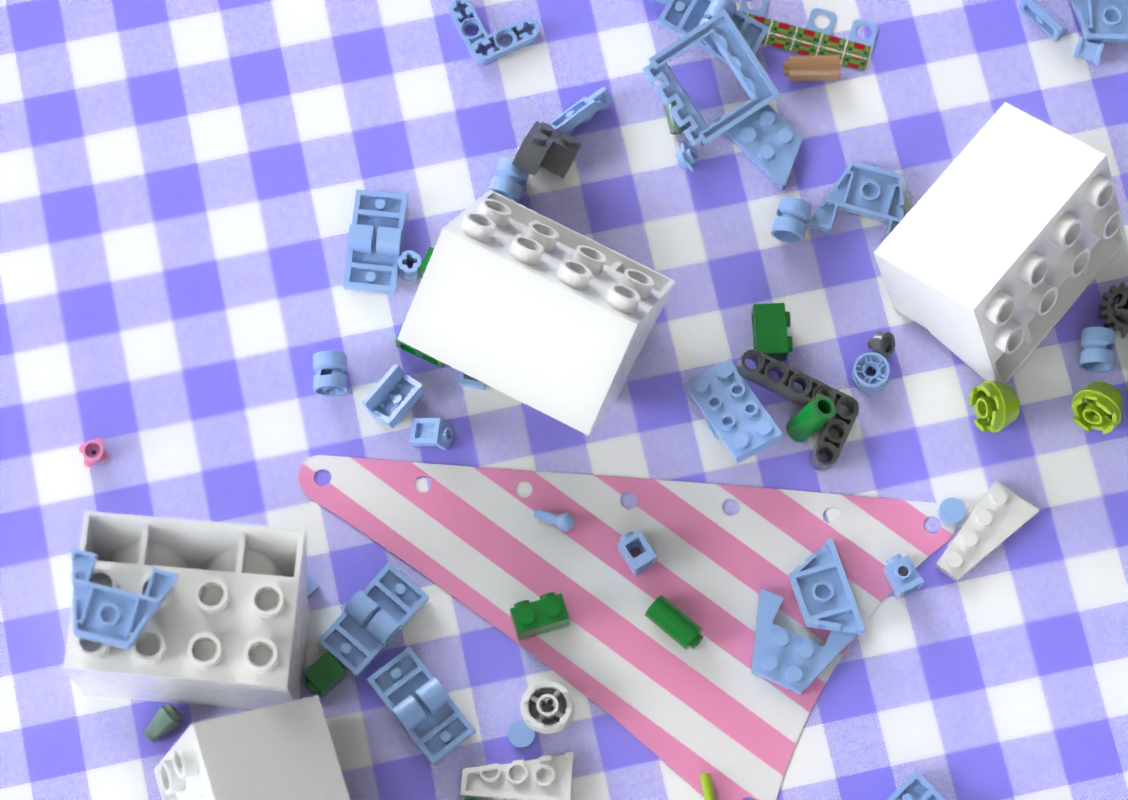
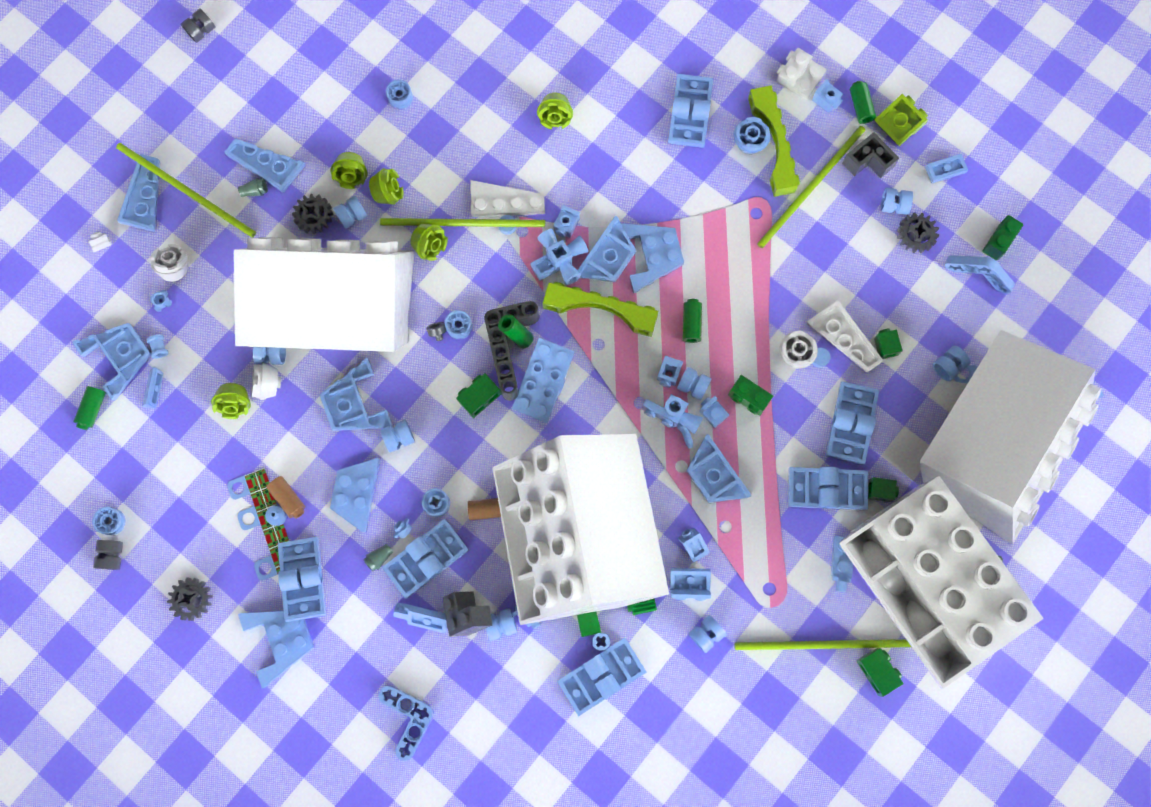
camera: 125 degrees left, 5 degrees up
(93, 445) = (875, 740): bright pink plate -> none
(111, 613) = (996, 611): light blue wing -> none
(149, 505) = (880, 671): none -> green brick
(244, 457) = (834, 644): none -> lime piece
(485, 514) = (715, 475): none -> light blue wing
(554, 567) = (713, 411): none -> light blue bracket
(583, 507) = (673, 413): none -> light blue brick
(600, 567) = (692, 382): none -> light blue wheel
(636, 159) = (425, 558): none -> light blue plate
(644, 246) = (483, 509): none -> medium nougat brick
(693, 218) = (443, 505): none -> light blue wheel
(725, 565) = (562, 299): none -> lime arch
(739, 58) = (314, 541): light blue hinge -> none
(802, 45) = (278, 519): none -> light blue tile
(865, 533) = (558, 257): none -> light blue brick
(957, 126) = (265, 381): none -> white cone
(964, 81) = (231, 401): none -> lime cone
(990, 463) = (462, 222): none -> lime piece
(1054, 665) = (555, 111): none -> lime cone

